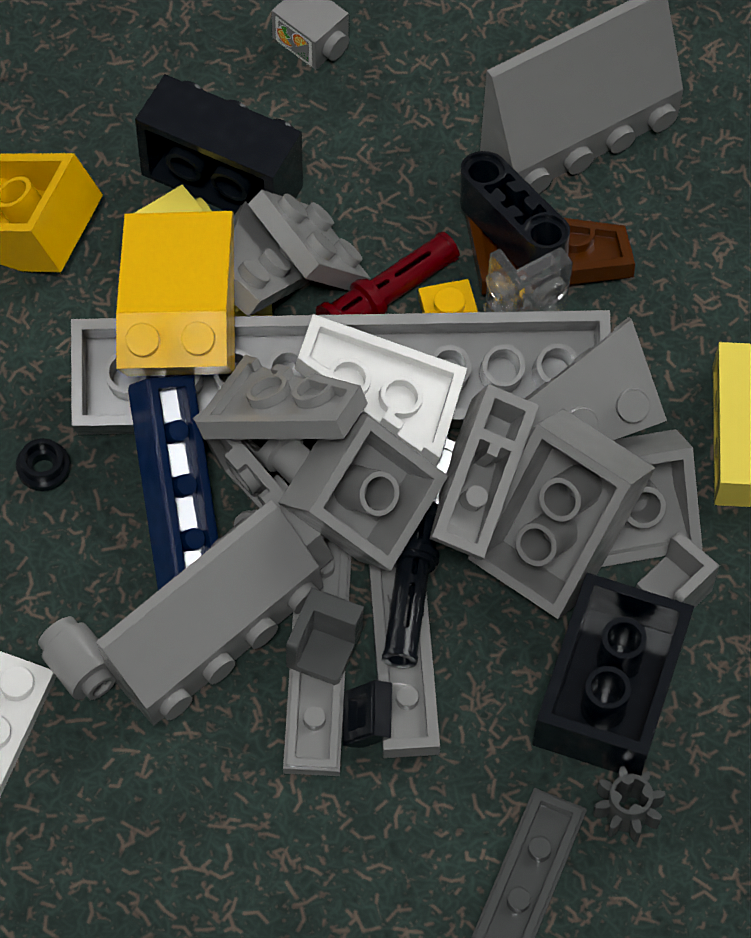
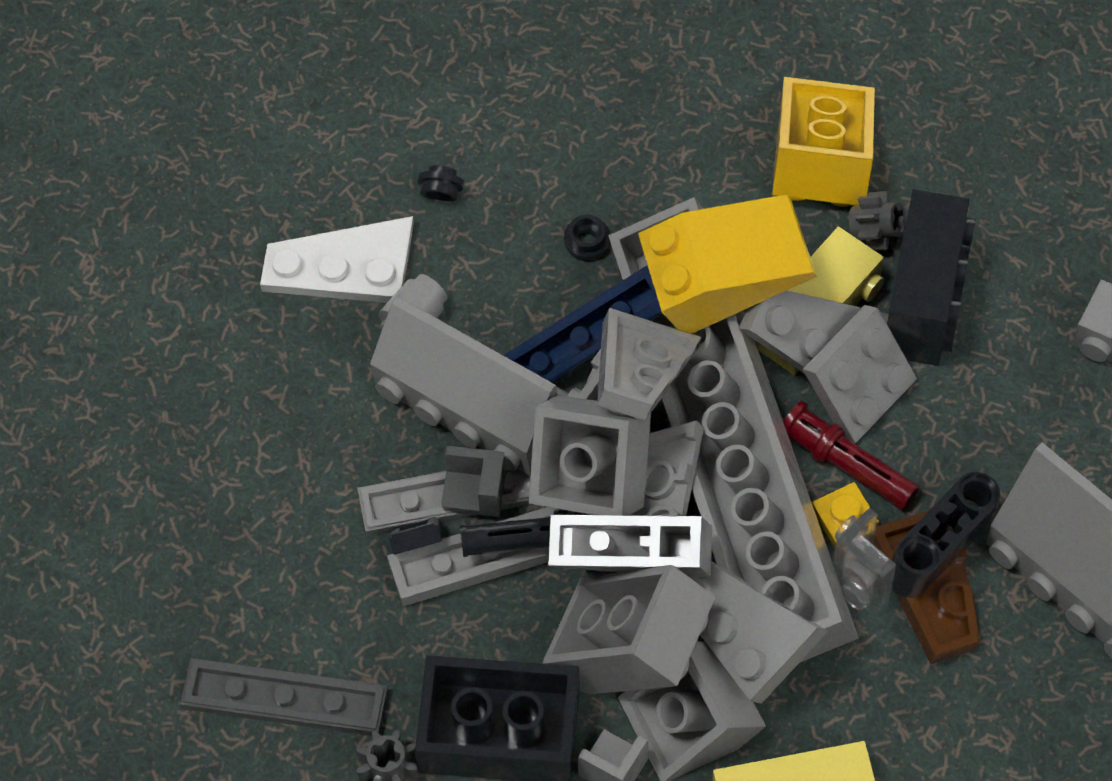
camera: 80 degrees right, 0 degrees up
(128, 184) = (877, 220): none -> dark grey gear
(403, 387) = (703, 451): white wing -> none

